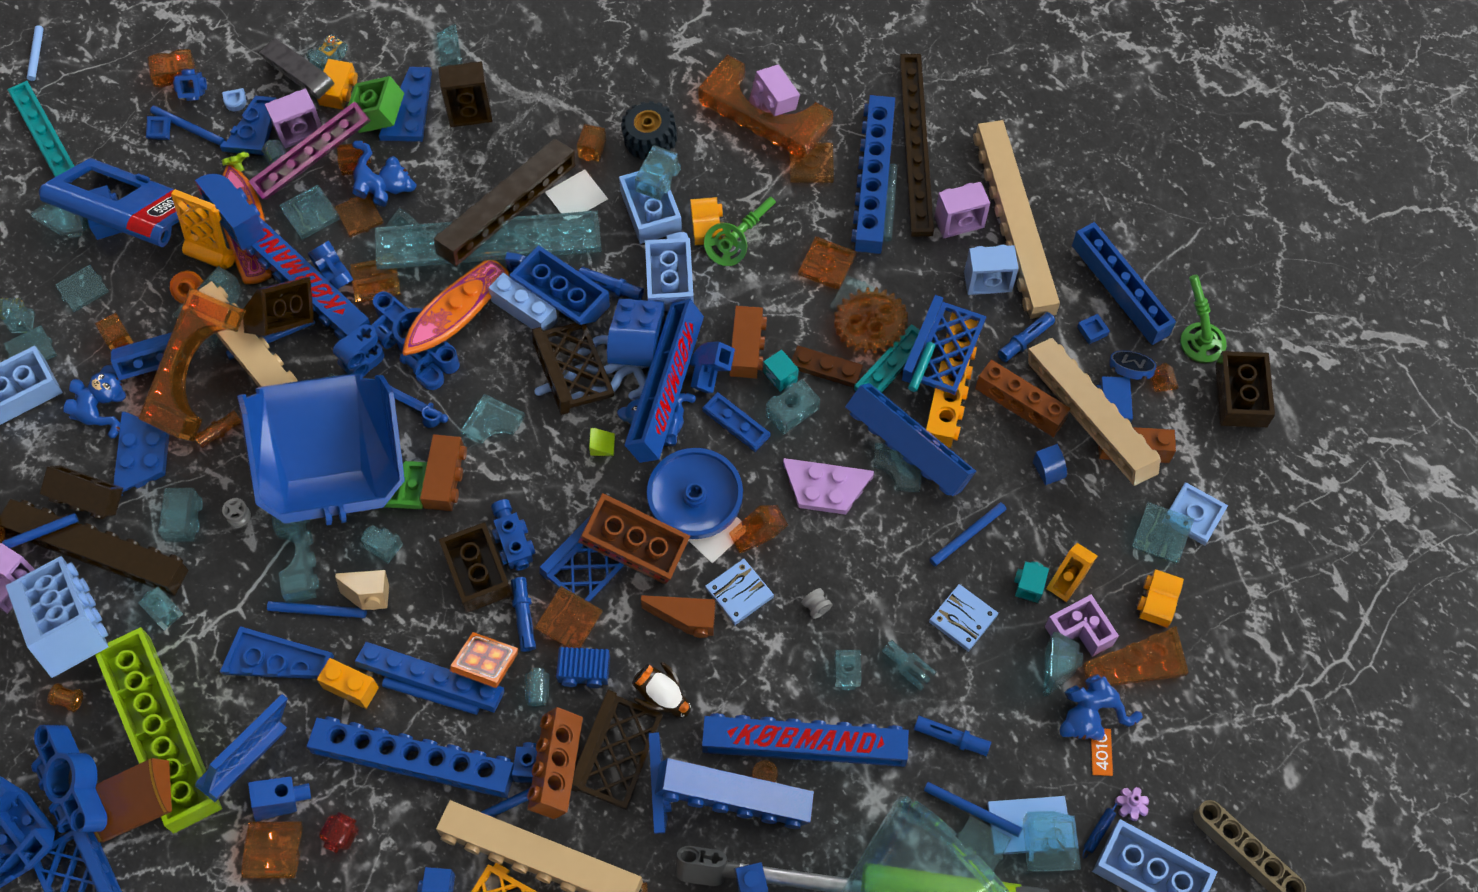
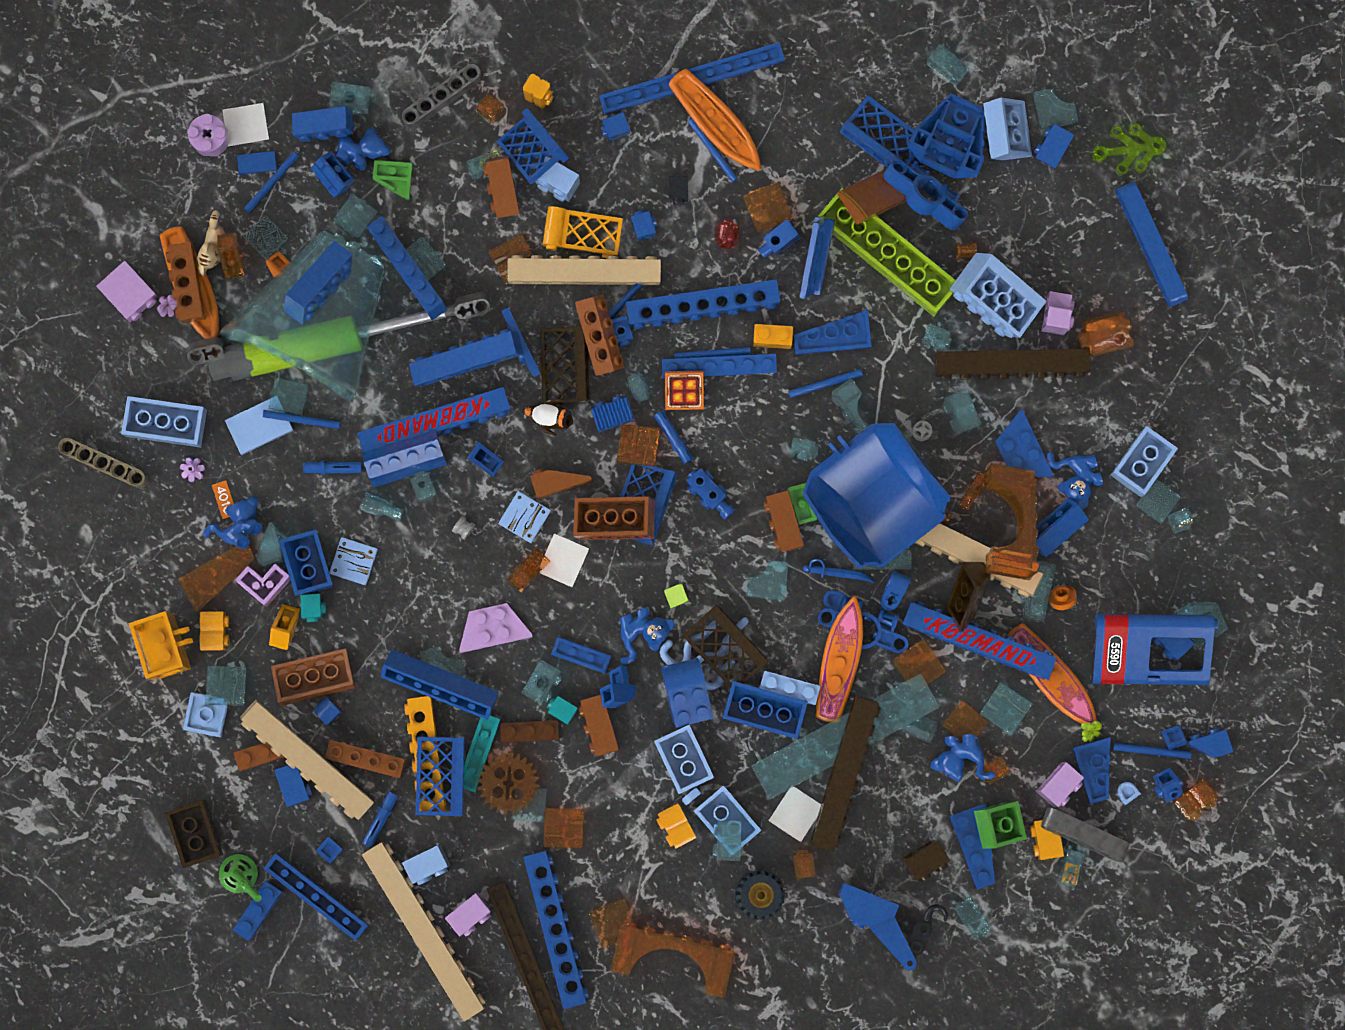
camera: 160 degrees right, 20 degrees up
(35, 52) = (1324, 770): light blue bar -> none
(41, 128) = (1270, 697): teal tile -> none
(41, 531) = (1051, 354): blue bar -> none
(81, 288) = (1149, 568): clear light blue piece -> none
(81, 491) = (1044, 399): dark brown brick -> none
(114, 332) = (1096, 536): clear orange brick -> none
(123, 107) = (1212, 745): none -> blue slope
(200, 245) = (1066, 637): light orange piece -> none
(236, 214) = (1049, 660): blue brick -> none
(273, 150) = (1059, 748): clear light blue brick -> none
(309, 151) = (1025, 753): magenta brick -> none
(329, 265) = (954, 657): blue piece -> none
(365, 589) = (794, 408): tan slope -> none
(475, 567) = (722, 455): dark brown brick -> none
(513, 260) = (811, 725): blue tile -> none
(537, 69) = (879, 915): none -> blue slope
(619, 287) = (730, 737): blue pin -> none
(664, 381) = (645, 657): blue brick -> none
(695, 492) = (586, 577): blue dish -> none
(730, 239) = (649, 813): bright green dish -> none
(760, 673) = (485, 459): none -> blue slope
(766, 771) = (454, 390): clear orange tile -> none
(773, 91) = (665, 968): lavender brick -> none
(859, 708) = (404, 458): none -> blue slope
(890, 202) = (533, 910): clear light blue bar -> none
(921, 367) = (450, 746): teal piece -> none
(967, 534) = (371, 630): blue bar -> none
(1024, 628) = (305, 563): none -> blue slope
(1050, 841) = (239, 416): clear light blue slope -> none
(1055, 506) = (313, 677): none -> dark orange slope
(1099, 830) = (209, 440): blue piece -> none
(1132, 364) = (288, 822): tile -> none
(1164, 378) = (260, 825): clear orange slope -> none
(1181, 299) = (258, 911): none -> blue brick
(1228, 597) = (161, 645): none -> light orange piece

